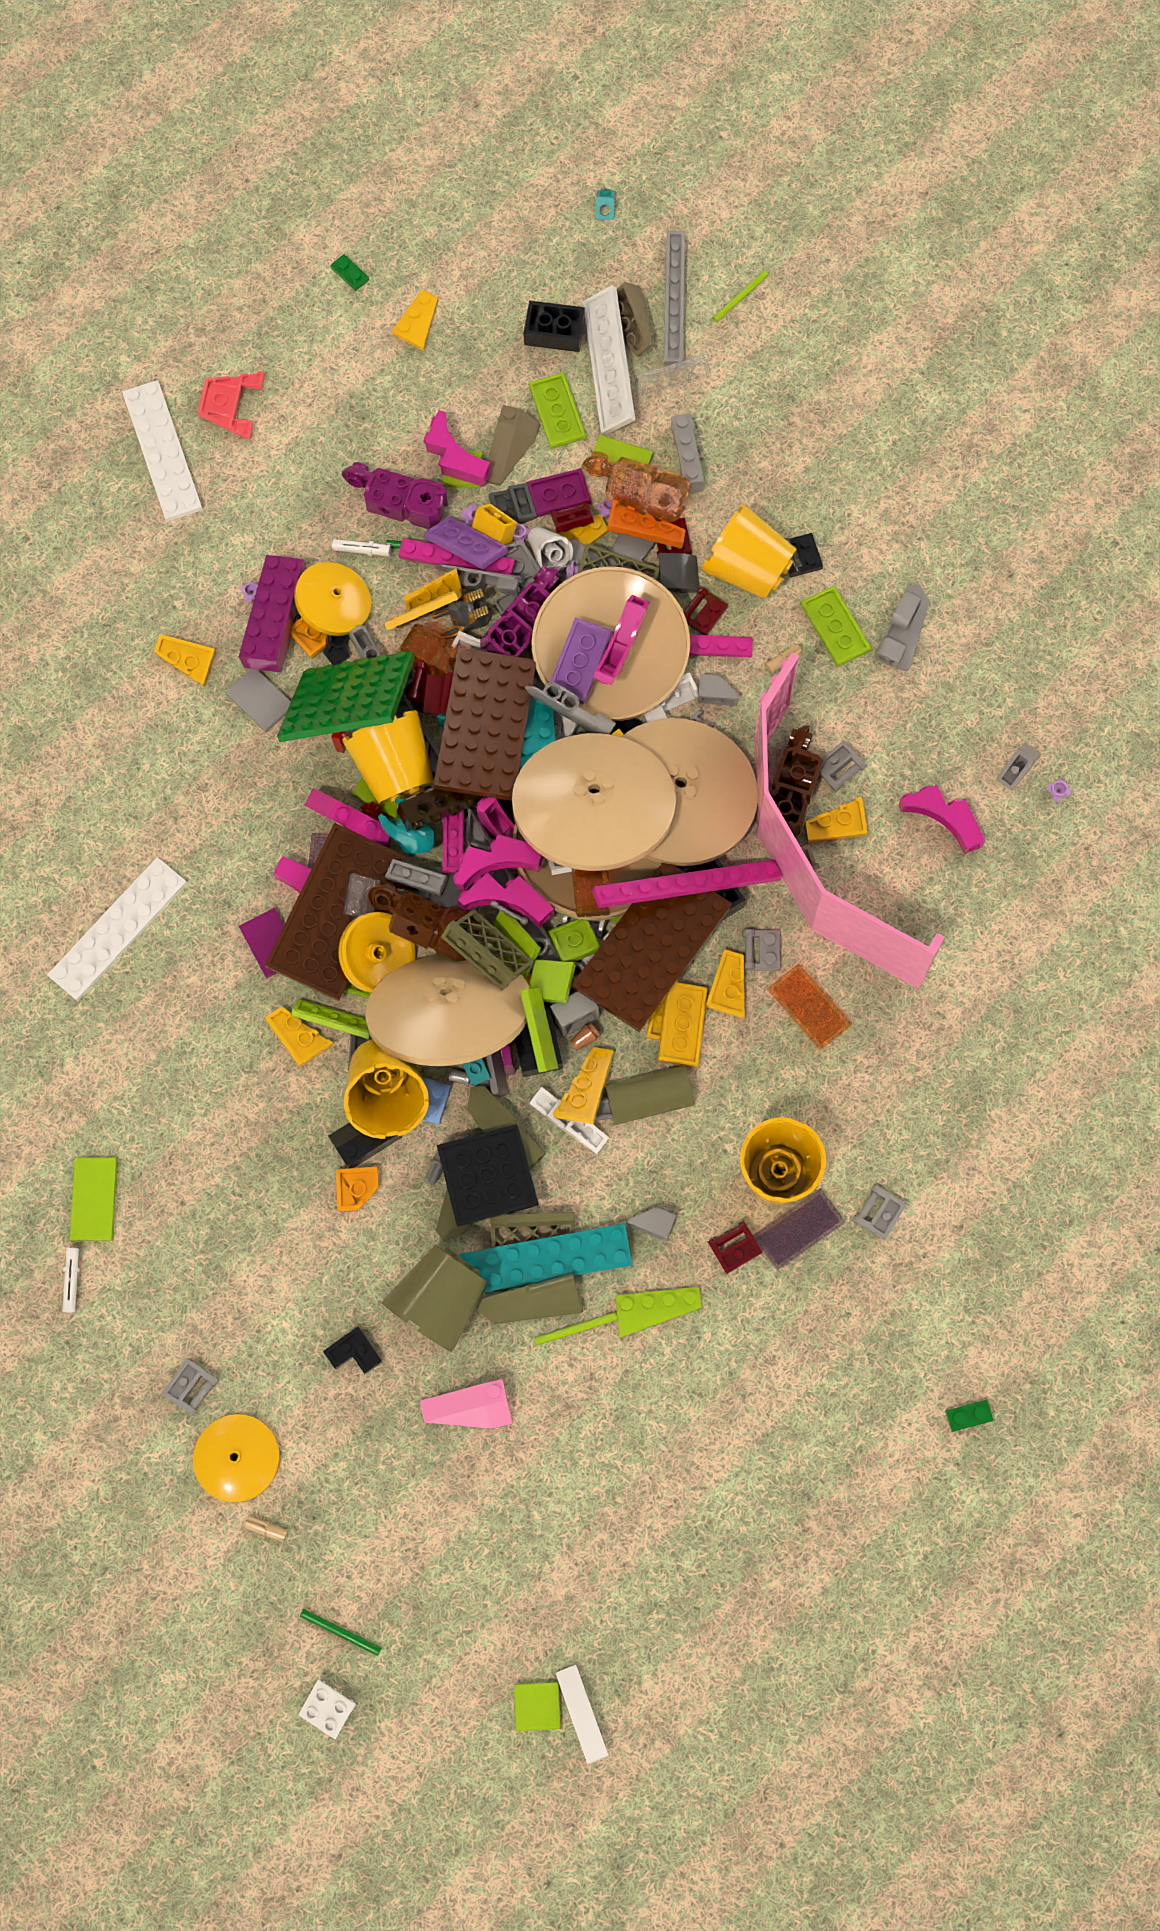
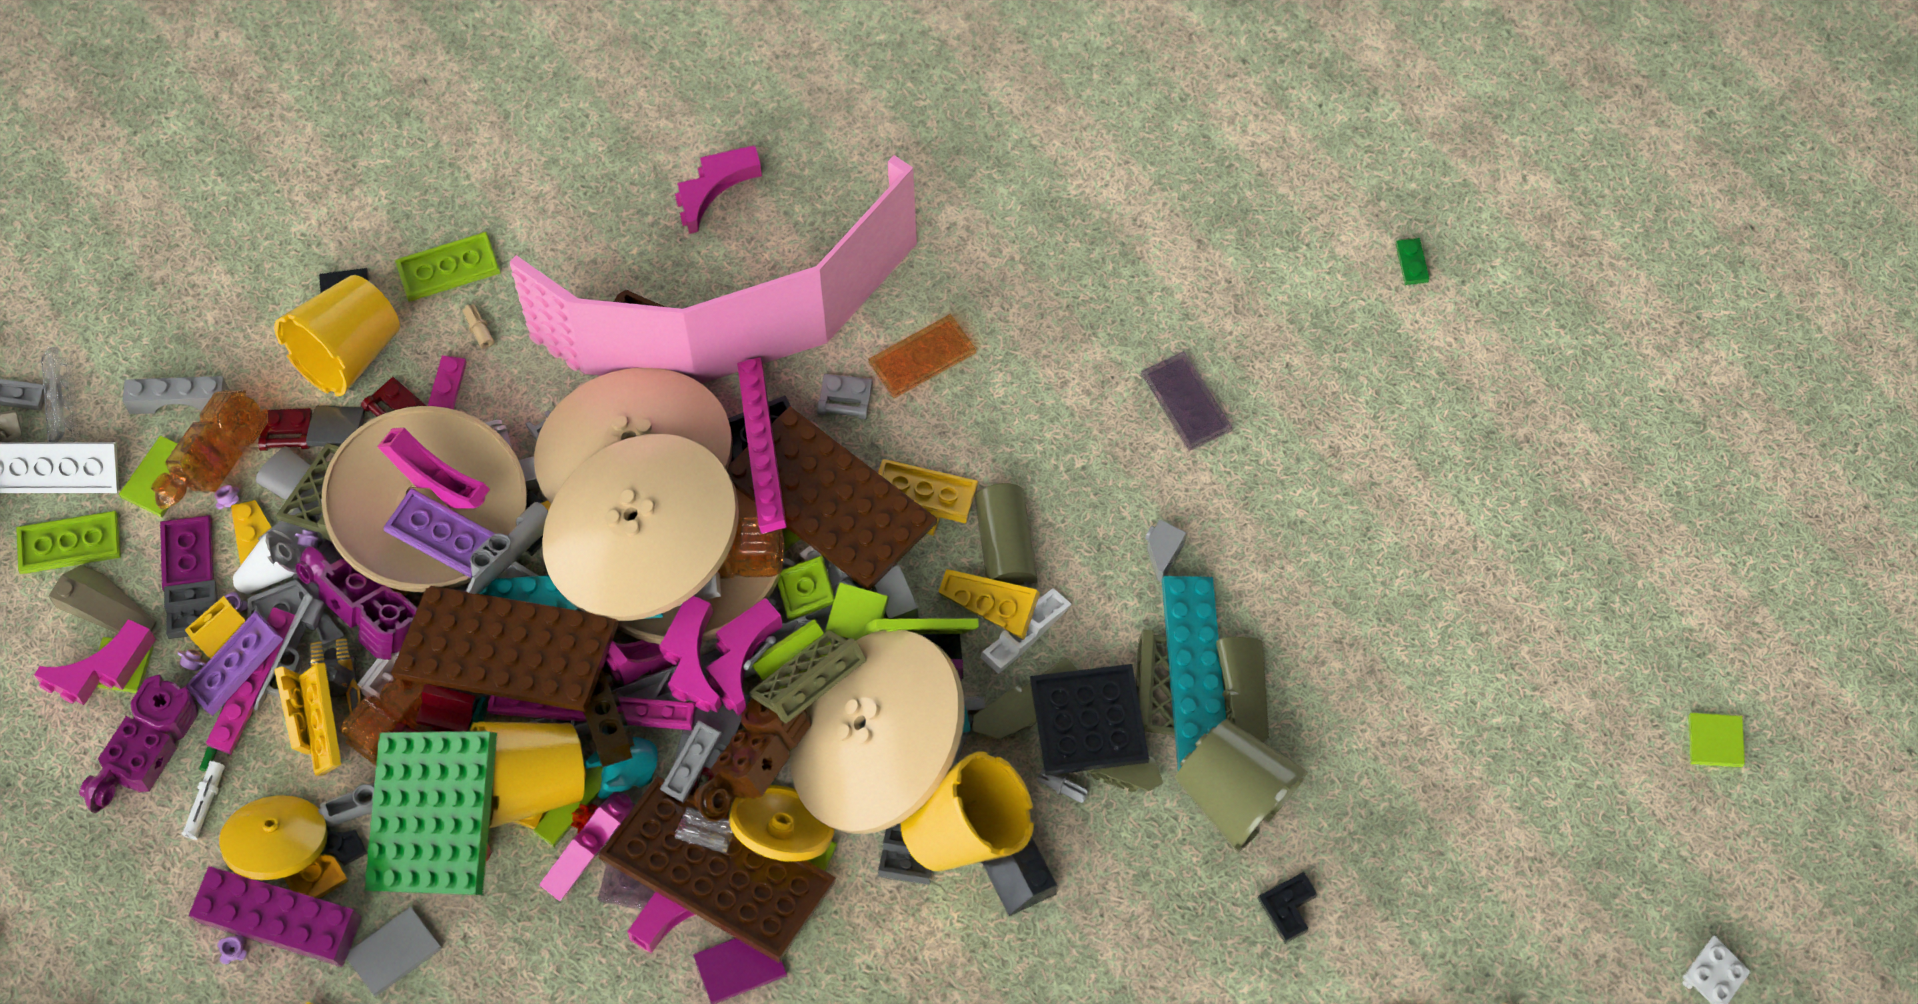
camera: 85 degrees left, 10 degrees down
(297, 1037) = (873, 941): yellow wing -> none
(331, 1018) = (856, 892): lime tile -> none
(355, 1187) = (1081, 885): light orange plate -> none
(356, 1640) = (1626, 953): green bar -> none
(472, 1407) = (1366, 772): bright pink wedge -> none
(572, 517) = (229, 536): dark red plate -> none
(575, 1328) = (1280, 651): lime bar -> none
(582, 1714) = (1727, 689): white slope -> none
(585, 1036) = (924, 599): nougat cone -> none
(641, 526) = (266, 451): orange wing -> none
(652, 1308) = (1264, 566): lime wing -> none
(715, 690) = (504, 401): light grey slope -> none
(728, 985) = (884, 437): yellow wing -> none
(738, 1253) = (1208, 462): dark red plate -> none
(784, 1146) = (1120, 385): yellow cone -> none
(837, 760) = (619, 279): light grey plate -> none
(840, 823) = (698, 282): yellow wing -> none
(886, 1215) = (1181, 310): light grey plate -> none
(904, 629) = (479, 199): light grey panel -> none
(1018, 766) = (668, 103): light grey slope -> none
(1059, 784) = (700, 65): lavender plate -> none

